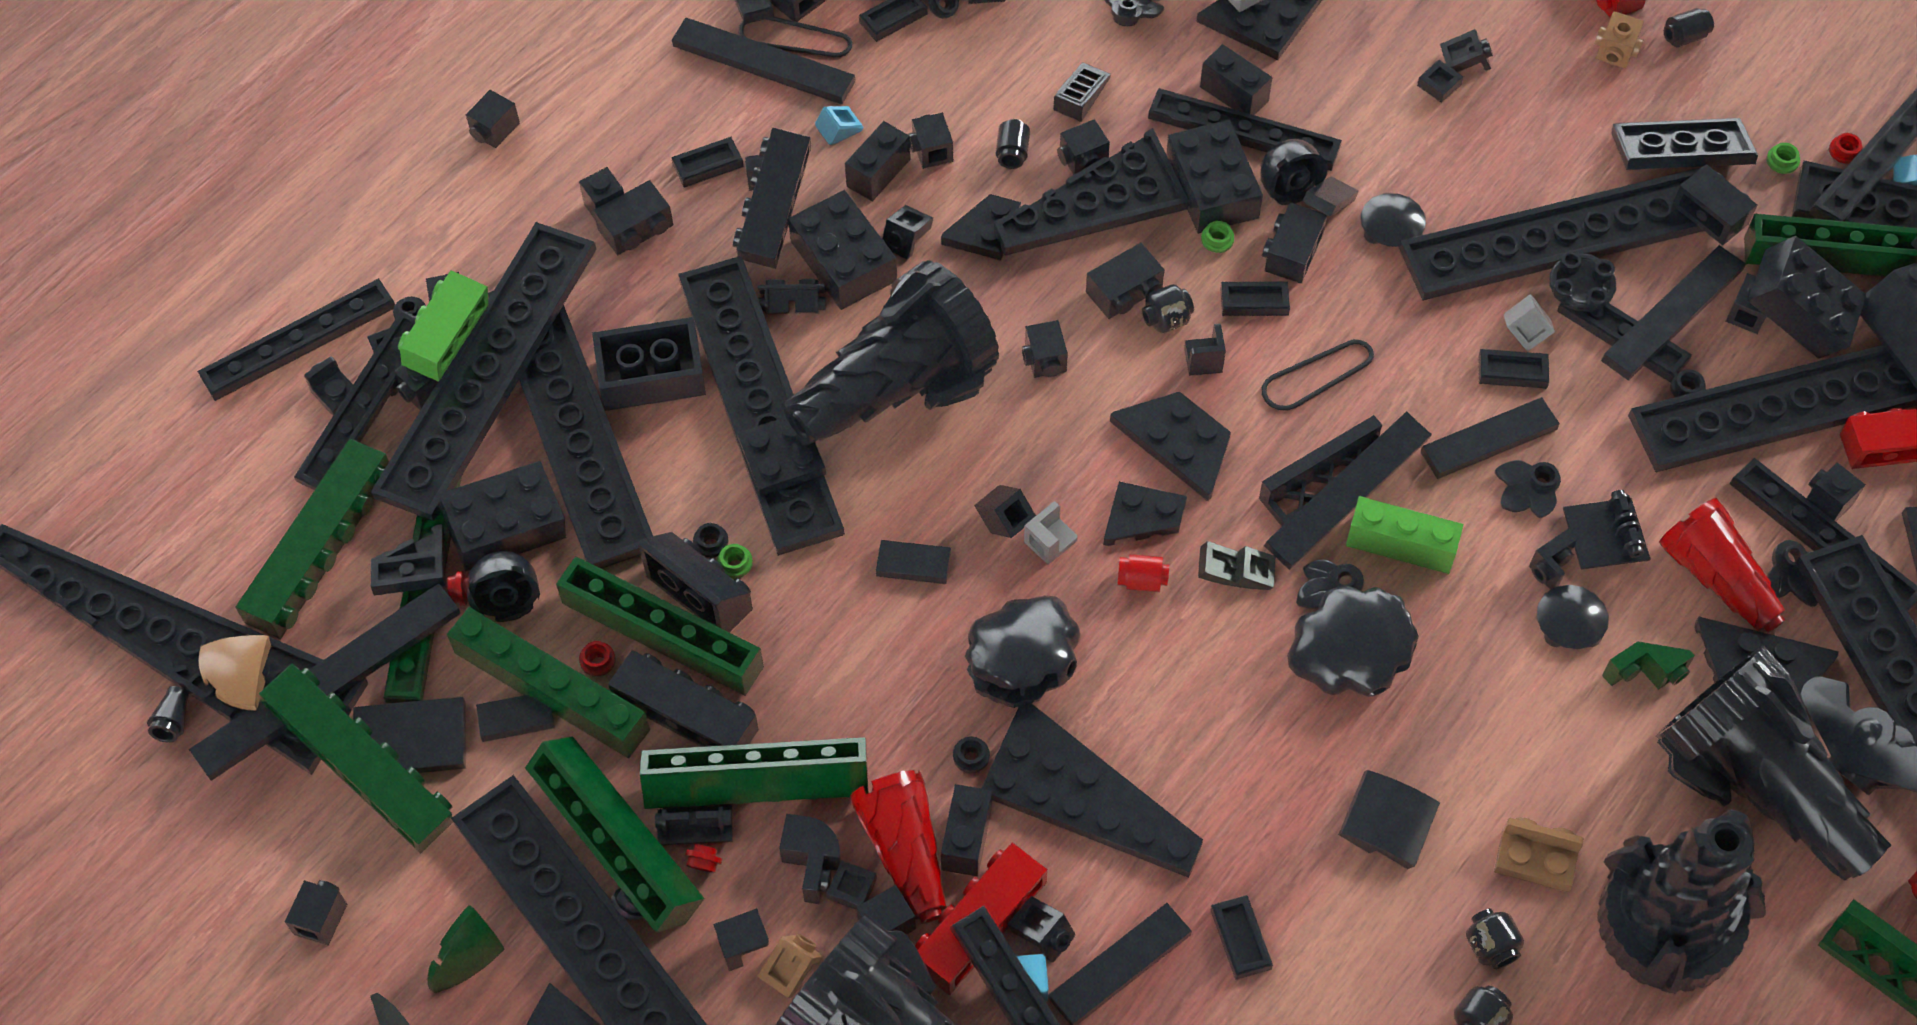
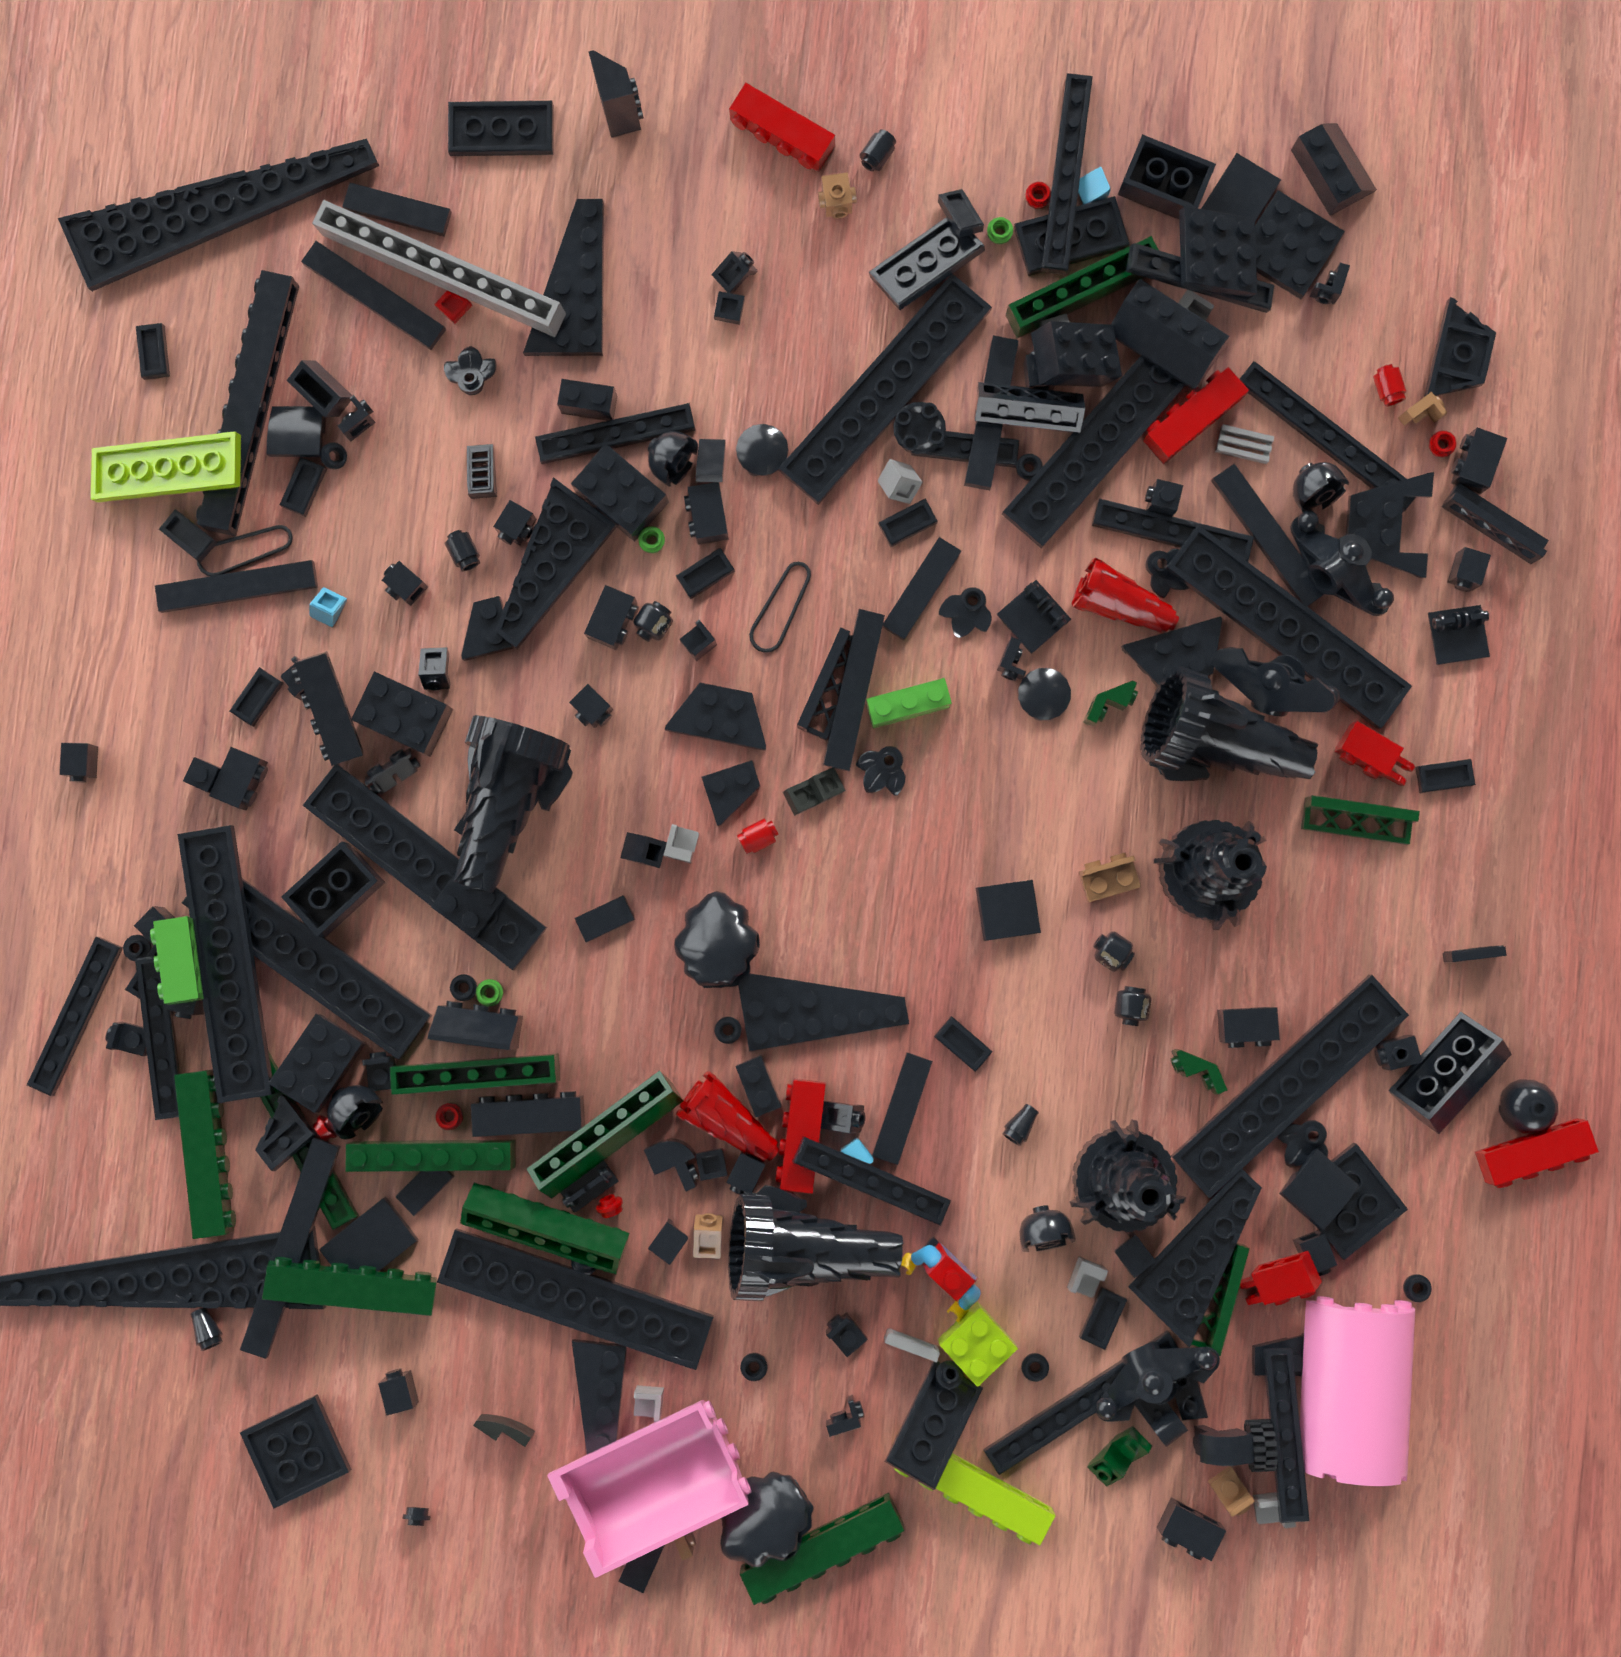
camera: 30 degrees left, 25 degrees up
(155, 905) = (295, 1451): none -> black plate
(236, 668) = (227, 1281): medium nougat brick -> none
(464, 951) = (508, 1358): dark green brick -> none
(555, 565) = (379, 1070): none -> black bracket
(877, 161) = (378, 625): black brick -> none
(1354, 641) = (920, 805): black piece -> none
(1714, 204) = (976, 309): black brick -> none
(1721, 323) = (1029, 407): none -> black fence
(1748, 119) = (960, 213): none -> black tile

